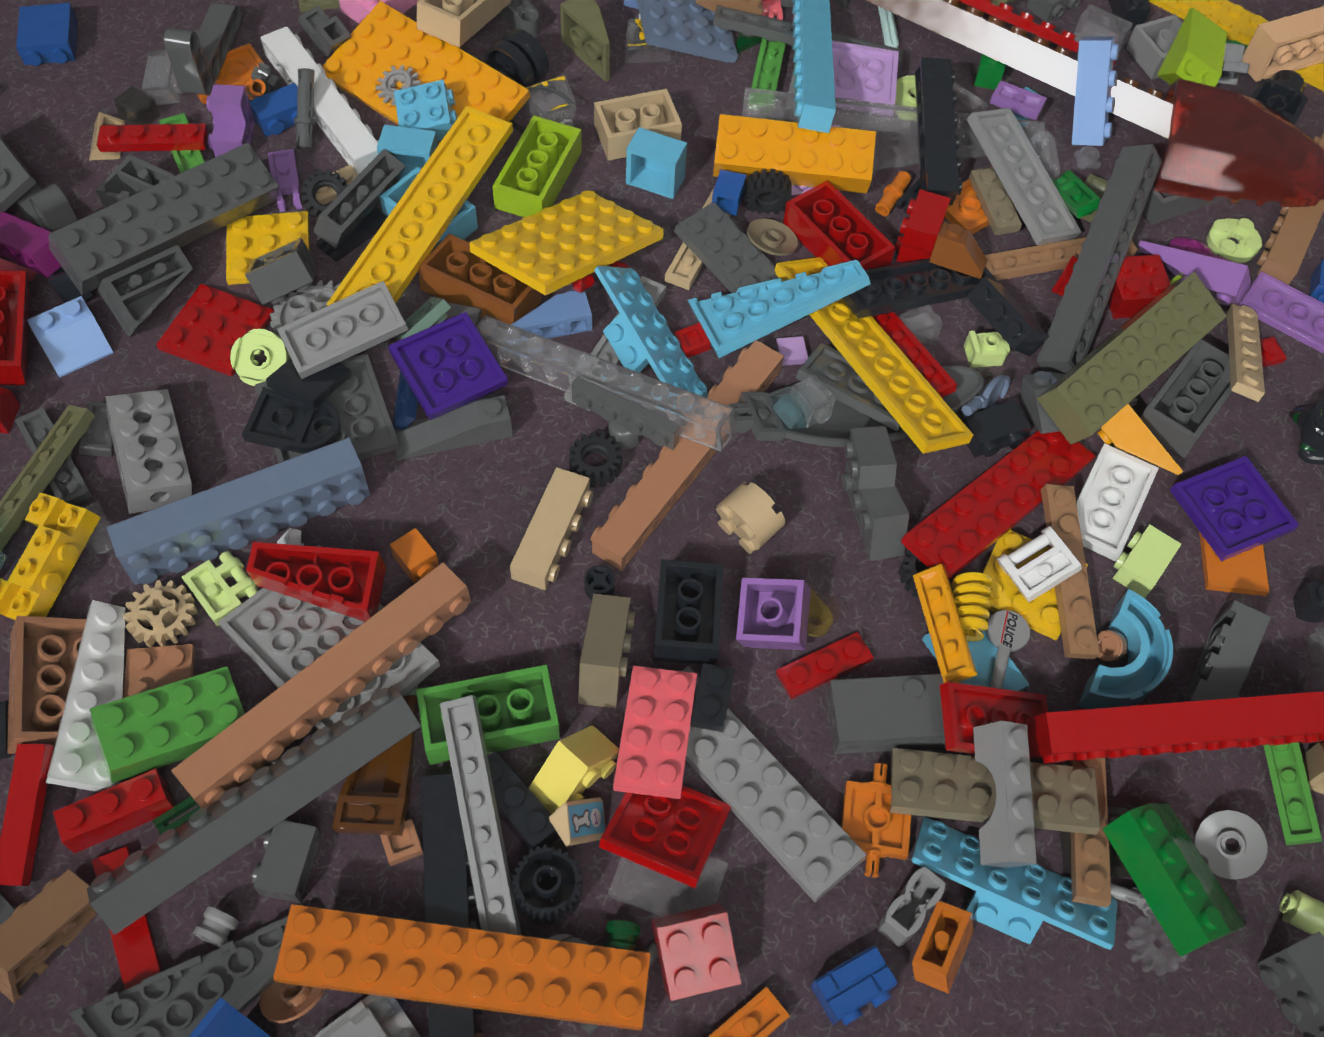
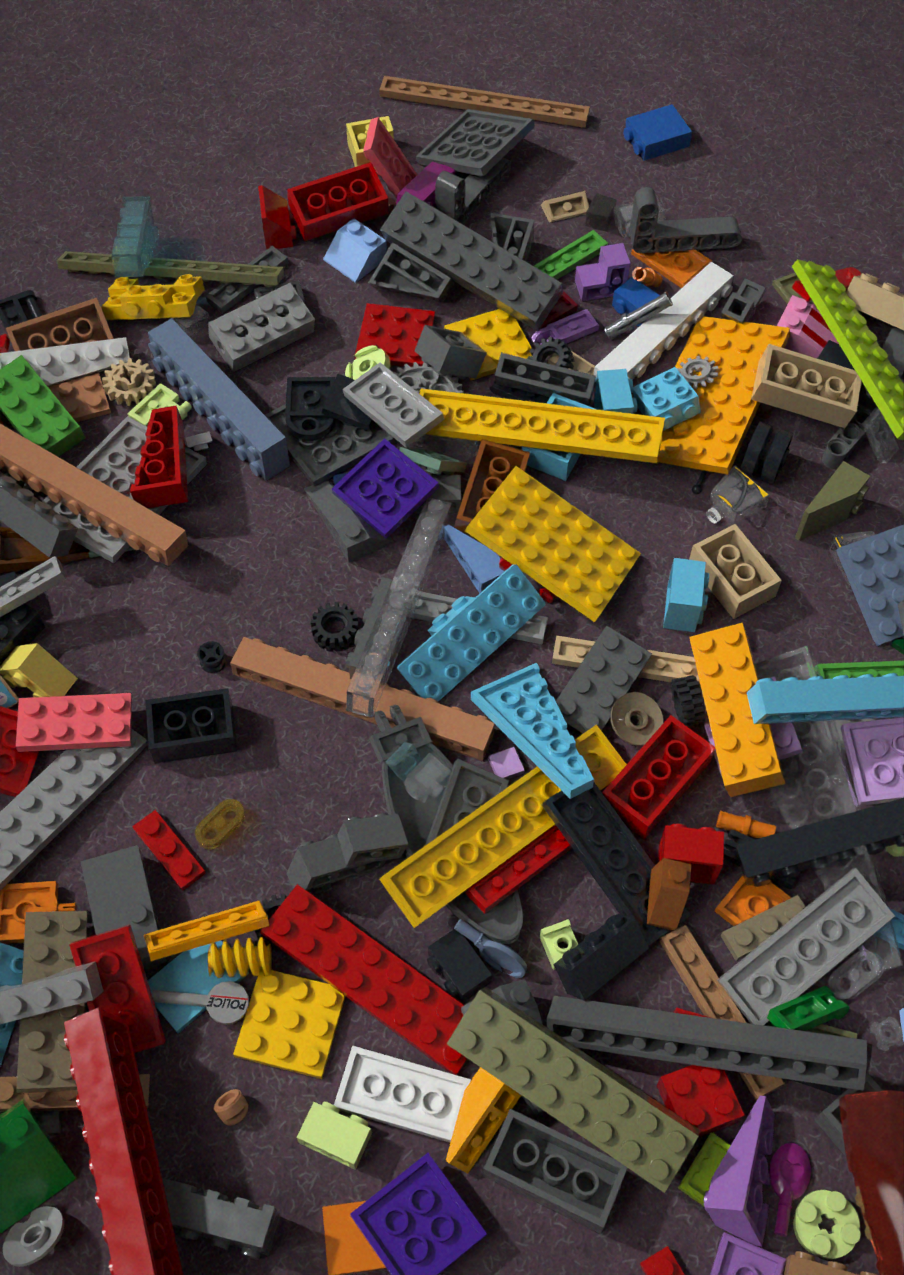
camera: 80 degrees right, 0 degrees up
(152, 137) = (569, 231): red plate -> none
(264, 73) = (665, 280): dark grey plate -> none
(414, 555) = (209, 521): orange brick -> none
(512, 708) = (78, 609): bright green brick -> none
(537, 167) = (644, 503): lime brick -> none
(550, 529) = (256, 609): tan brick -> none
(604, 650) = (148, 670): dark tan wedge -> none
(693, 340) = (486, 673): red plate -> none
(712, 697) = (111, 759): black plate -> none
(729, 191) = (670, 663): blue brick -> none
(750, 516) = (296, 754): tan brick -> none
(773, 613) = (196, 790): medium lavender brick -> none
(923, 323) = (568, 875): clear brick -> none
(1044, 571) = (285, 1020): white plate -> none
(1072, 594) = (300, 1051): medium nougat plate -> none
(1148, 657) = (214, 1138): medium azure brick -> none
(1245, 352) = (625, 1221): tan plate -> none

